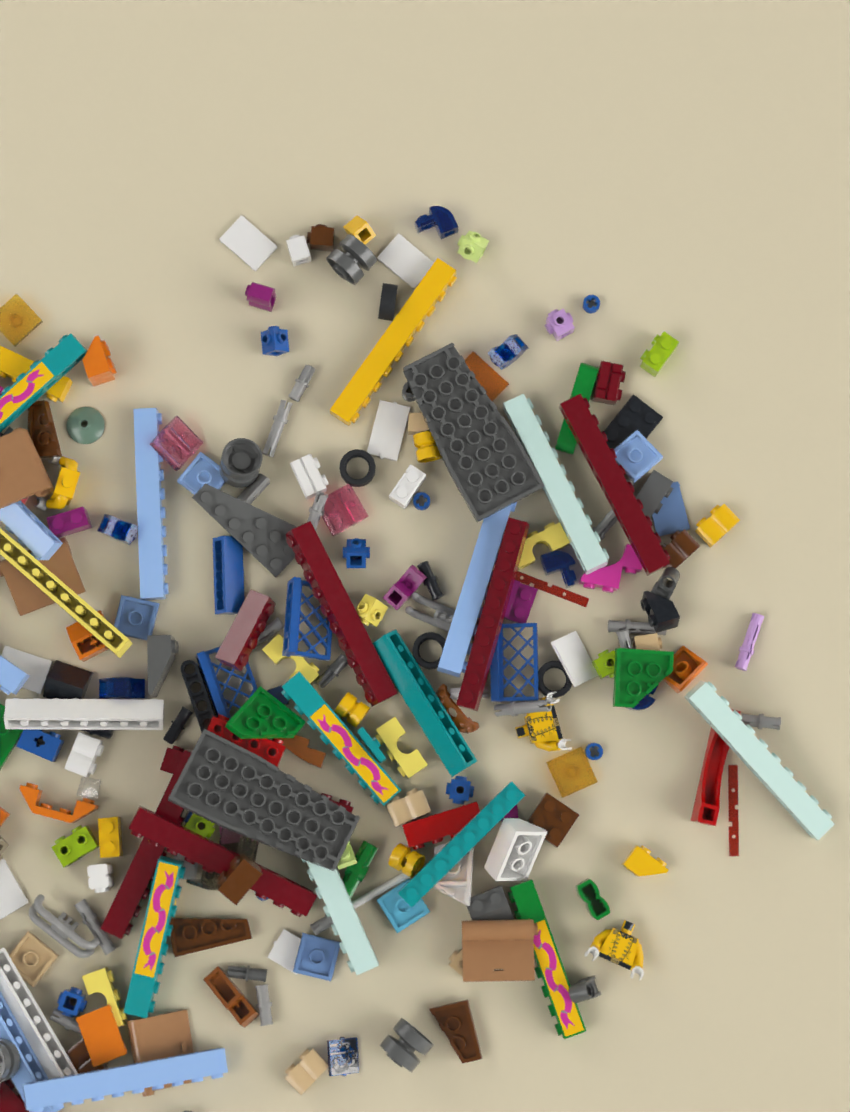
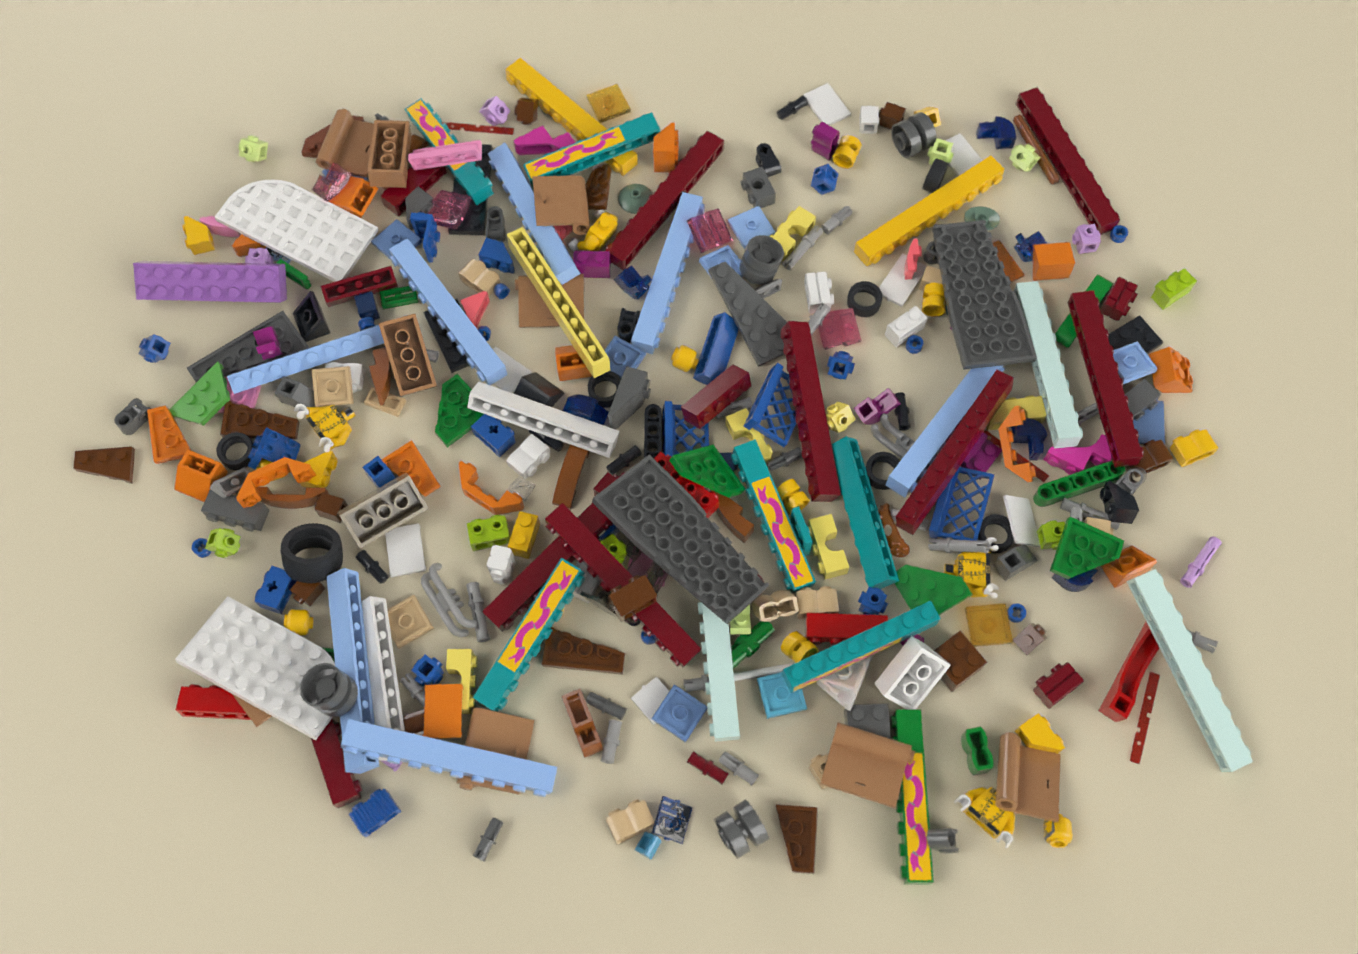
camera: 25 degrees right, 15 degrees down
(117, 419) = (665, 199): none -> dark red brick
(129, 574) = (627, 323): none -> black piece
(131, 761) = (569, 476): none -> dark orange slope
(136, 670) = (604, 402): none -> black tyre
(199, 596) = (684, 358): none -> yellow head
(204, 364) = (758, 188): none -> dark grey brick
(210, 339) = (767, 159): none -> black piece
(213, 260) = (792, 107): none -> black axle
(217, 420) = (750, 225): none -> light blue plate
(263, 401) = (799, 223): none -> light yellow arch
(287, 302) = (847, 151): none -> yellow wheel
(329, 1085) = (648, 845): none -> dark azure slope
(358, 997) = (707, 767): none -> dark red pin
(371, 825) = (777, 604): none -> tan brick
(383, 265) = (941, 150): none -> yellowish green brick
(386, 988) = (738, 768): none -> light grey axle
(391, 403) = (911, 261): none -> coral slope
(449, 327) = (983, 213): none -> sand green dish
(482, 228) = (1030, 139): none -> dark orange axle
(508, 759) = (925, 585): none -> green plate
(517, 233) = (1067, 160): none -> dark red brick
(531, 363) = (1052, 261): none -> orange slope
(561, 605) = (1023, 470): none -> orange slope
(580, 702) = (1014, 561): none -> dark grey slope
(613, 608) = (1072, 489): none -> green beam
(613, 772) = (1030, 638): none -> bracket
(639, 909) = (1024, 779): none -> medium nougat door
(648, 809) = (1058, 684): none -> dark red brick
(678, 449) = (1172, 371): none -> orange slope
(681, 945) = (1058, 833): none -> yellow head

